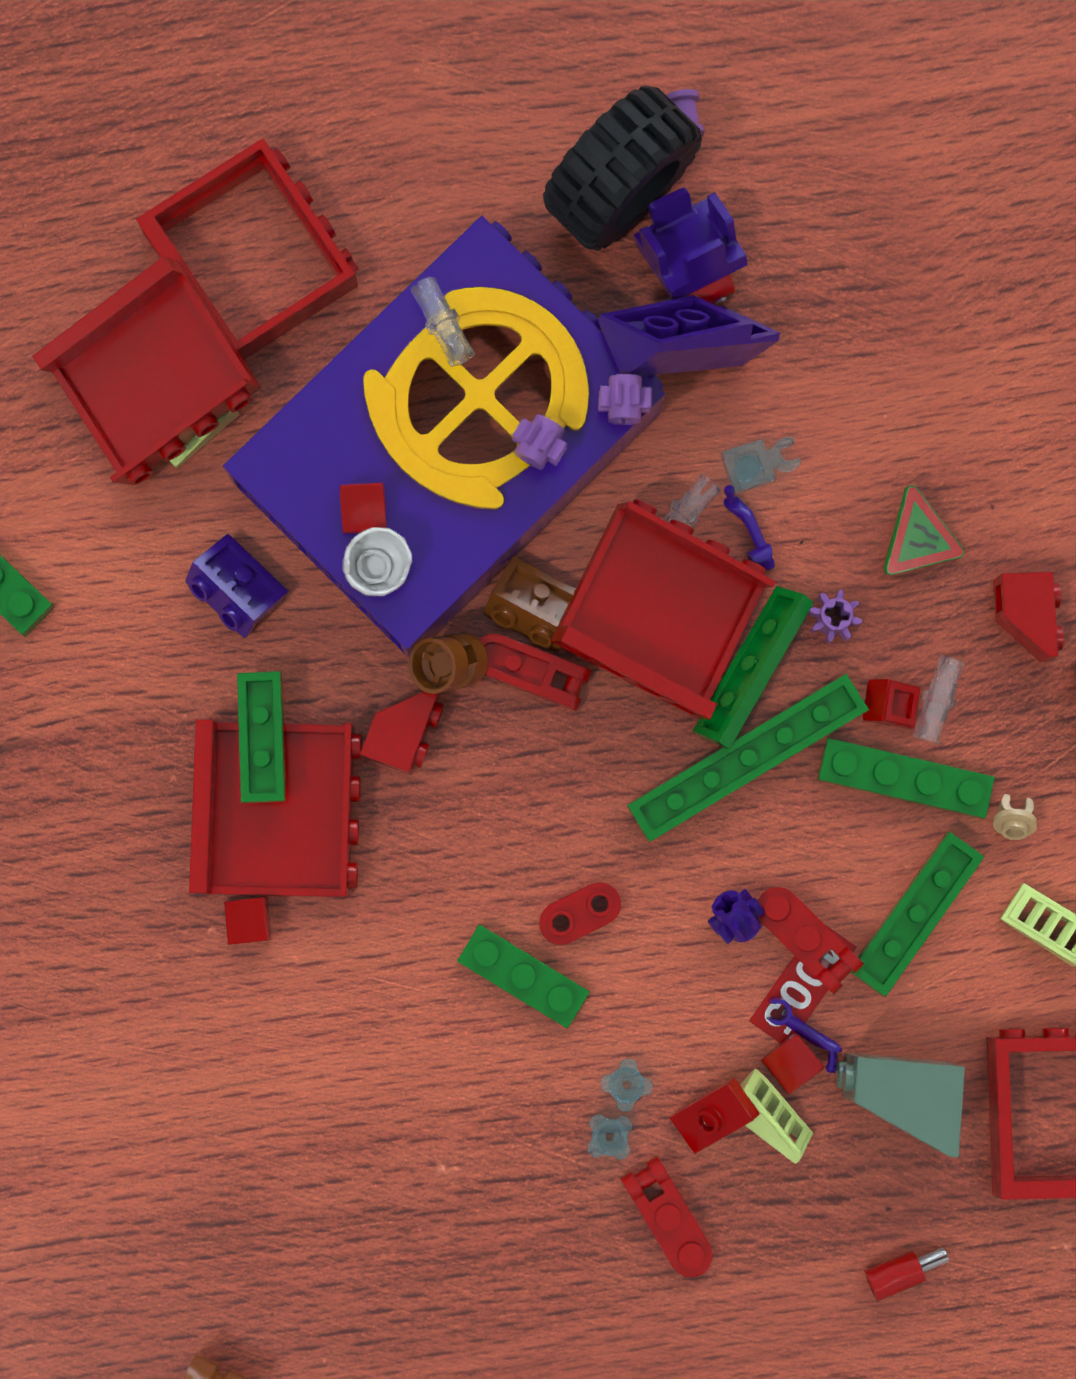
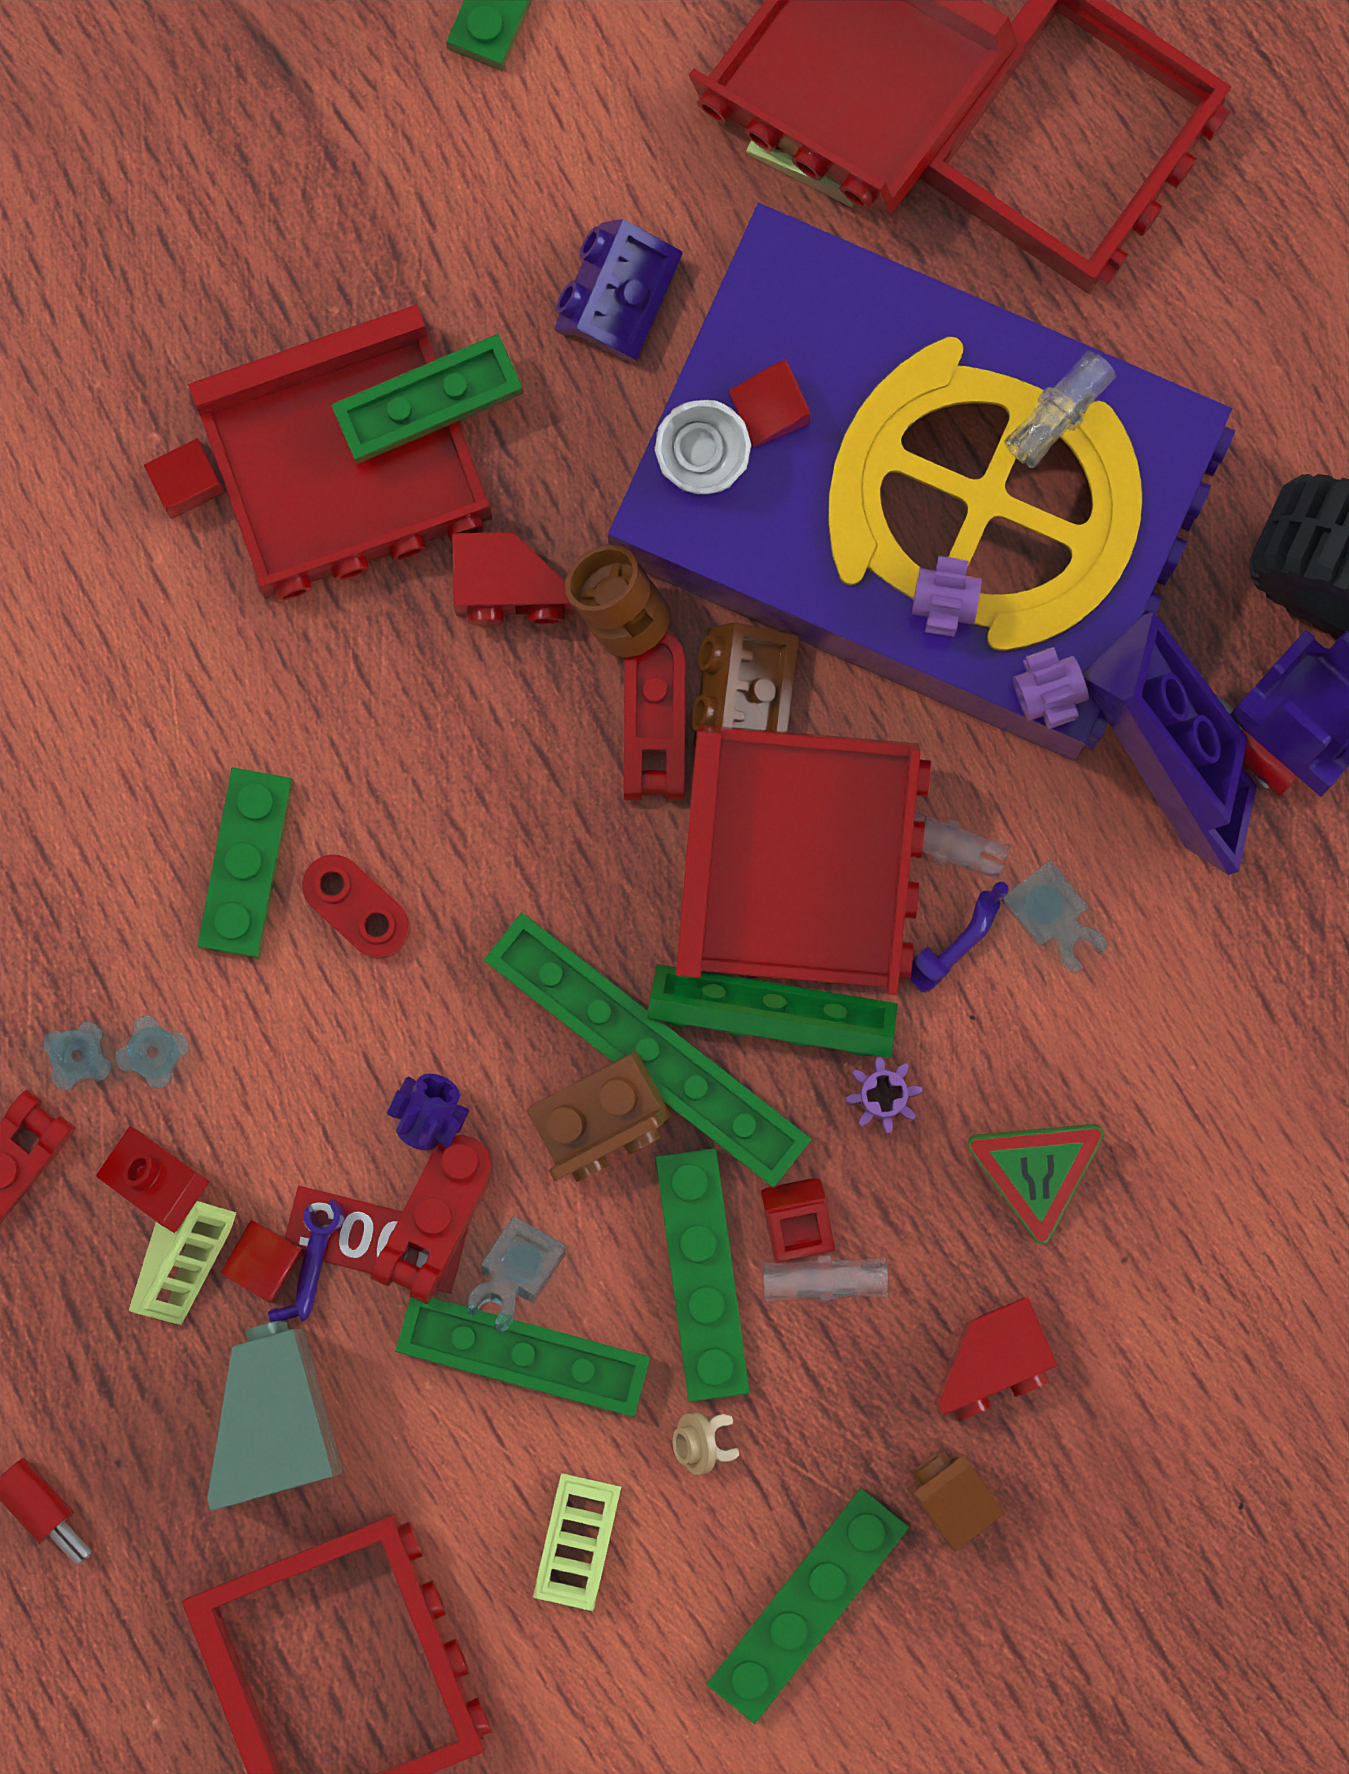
camera: 75 degrees right, 0 degrees up
(783, 805) = (598, 1116): none -> dark orange bracket
(859, 895) = (517, 1265): none -> clear light blue plate

